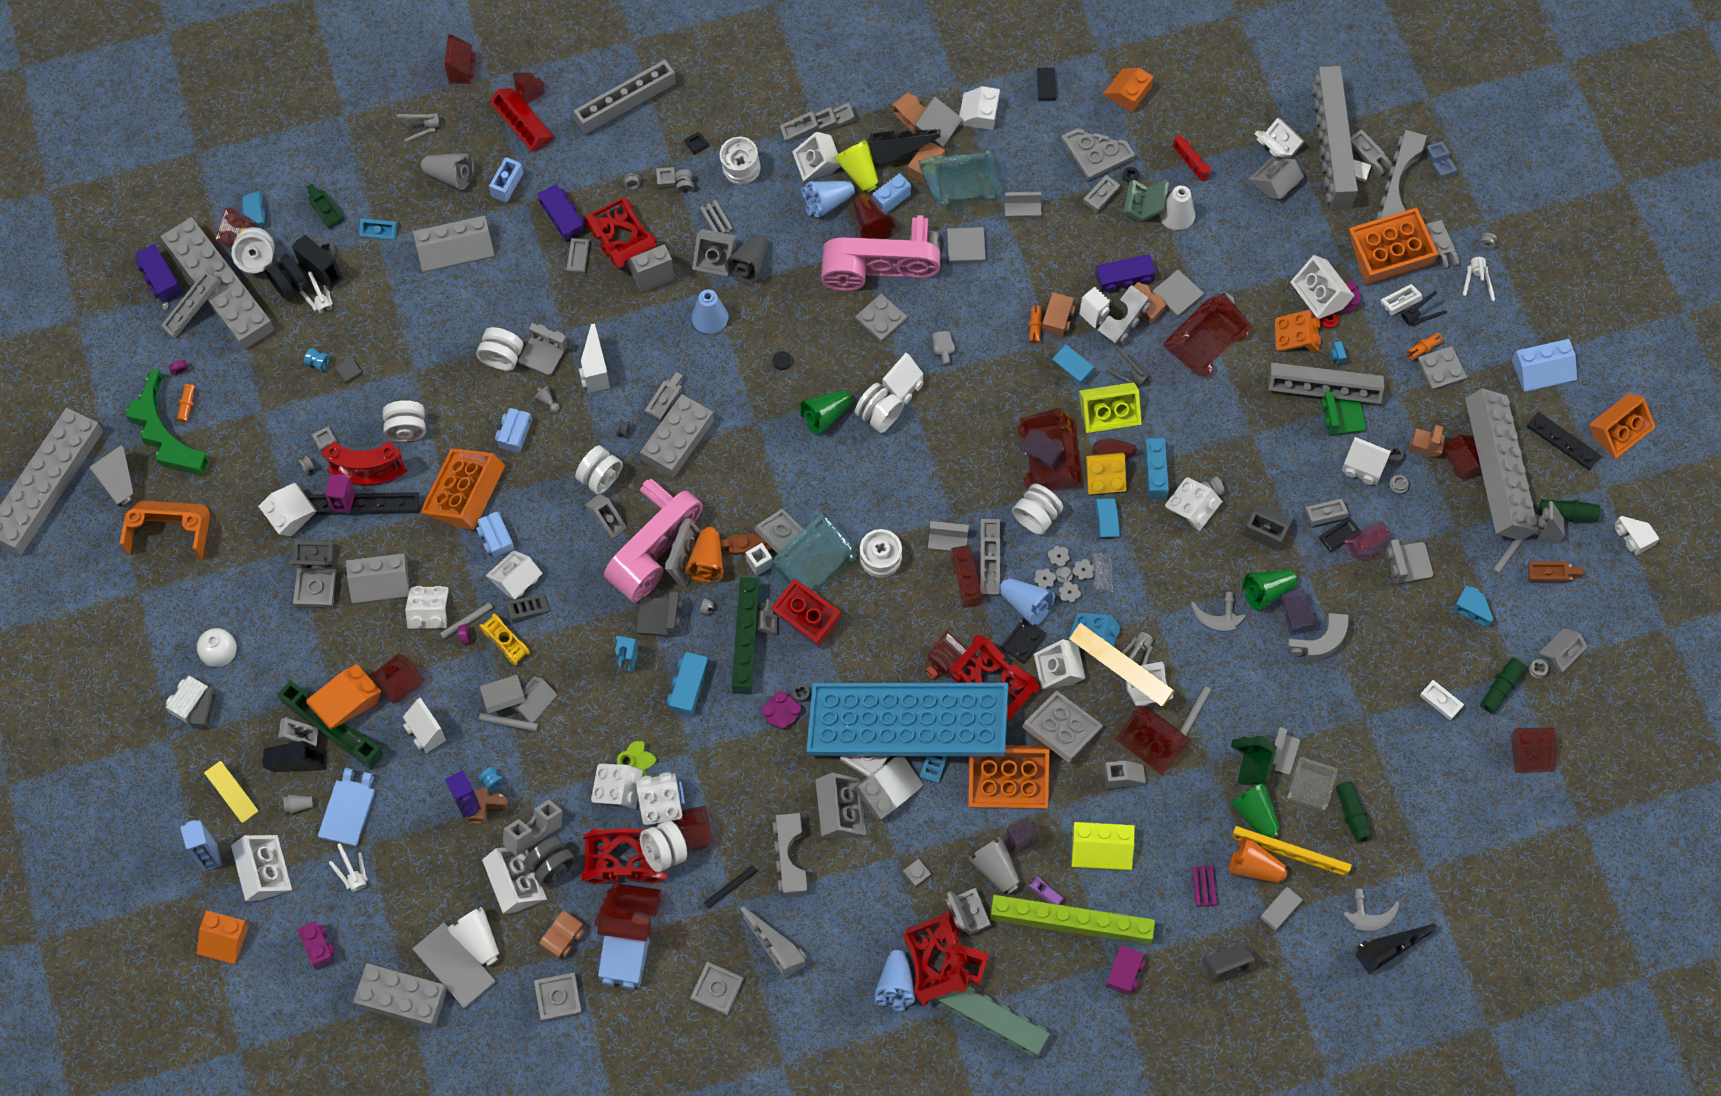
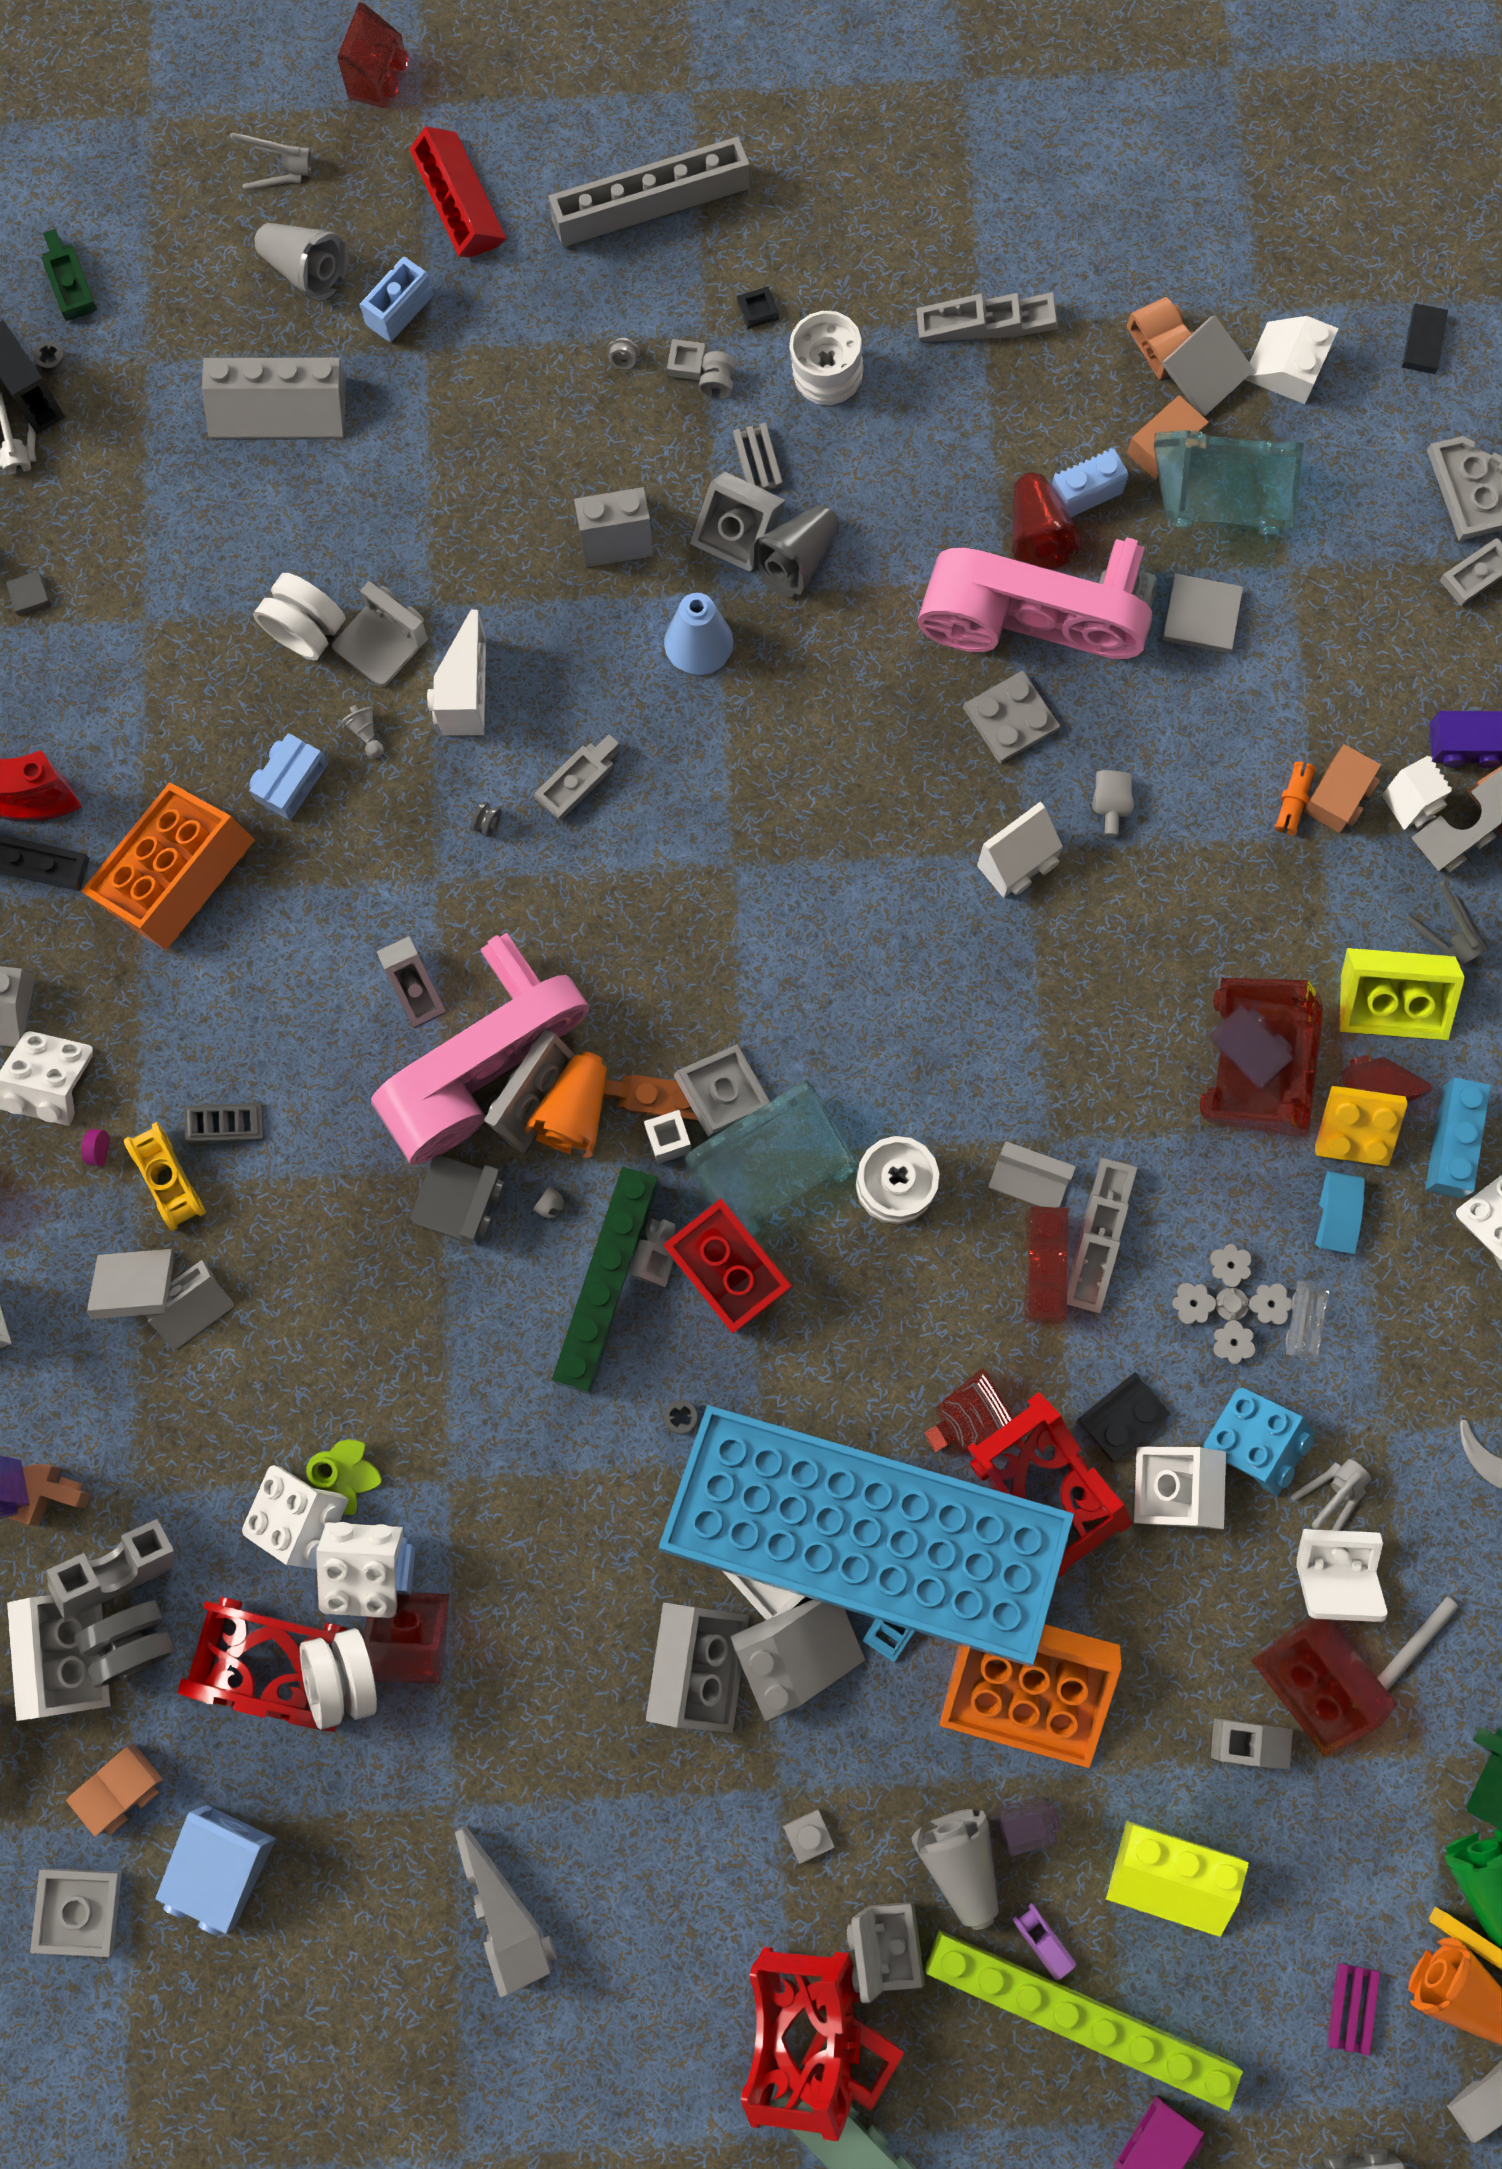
camera: 15 degrees right, 10 degrees up
(378, 228) = (151, 339): dark azure slope -> none
(404, 421) = (91, 713): white wheel -> none
(467, 620) = (109, 1120): light grey bar -> none
(490, 778) = (67, 1444): dark azure wheel -> none
(495, 534) = (201, 969): light blue brick -> none
(508, 722) = (135, 1339): light grey bar -> none
(514, 574) = (215, 1055): white slope -> none
(528, 86) = (482, 133): clear red slope -> none
(561, 212) = (482, 383): dark purple brick -> none
(578, 255) = (491, 471): light grey tile -> none
(598, 470) = (417, 891): white wheel -> none
(626, 650) = (380, 1265): dark azure hinge -> none
(627, 250) = (598, 474): red fence -> none
(628, 912) = (207, 1834): clear red arch -> none
(677, 436) = (579, 858): light grey brick -> none
(687, 684) = (475, 1348): dark azure brick -> none
(717, 988) = (376, 1971): light grey tile -> none
(730, 887) = (452, 1771): black bar -> none
(781, 710) = (635, 1443): magenta piece -> none
(782, 360) = (809, 757): black tile -> none
(793, 879) = (571, 1793): light grey arch -> none
(816, 156) = (969, 382): white slope -> none
(824, 410) = (863, 873): green cone -> none
(825, 195) = (967, 460): light blue cone -> none
(859, 165) = (1042, 416): neon yellow cone -> none
(879, 407) = (959, 888): white wheel -> none
(889, 146) = (1103, 392): black wedge -> none
(895, 983) = (712, 2057): light blue cone -> none
(1022, 204) = (1326, 560): light grey panel -> none
(1027, 599) = (1150, 1340): light blue cone -> none
(1037, 509) = (1214, 1166): white wheel -> none
(1062, 726) = (1157, 1617): light grey plate -> none
(1074, 364) = (1349, 893): dark azure hinge -> none
(1121, 664) = (1303, 1530): tile -> none

